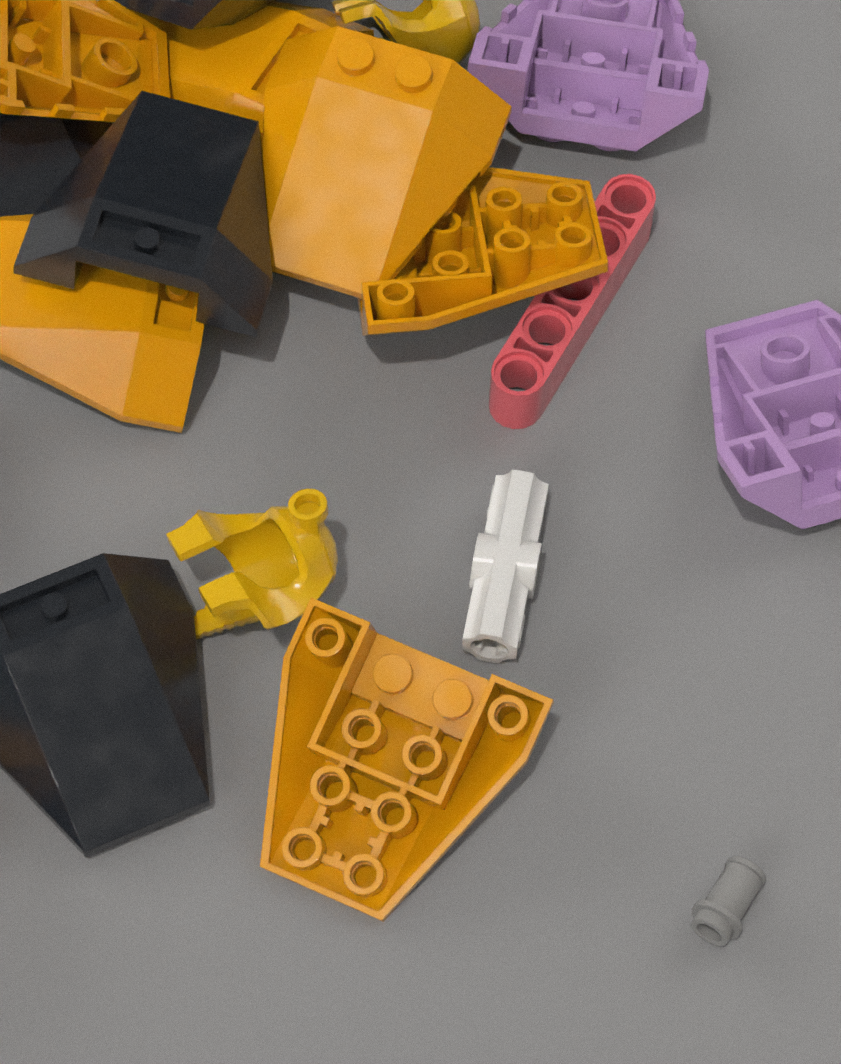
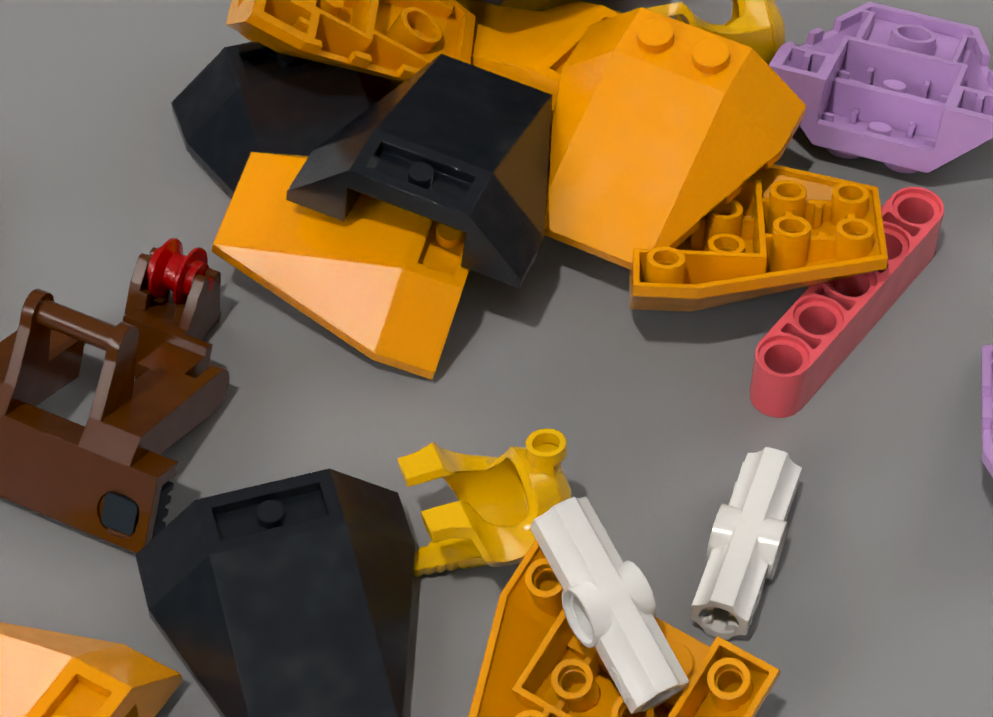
camera: 10 degrees right, 10 degrees down
(388, 658) = (609, 604): none -> white piece

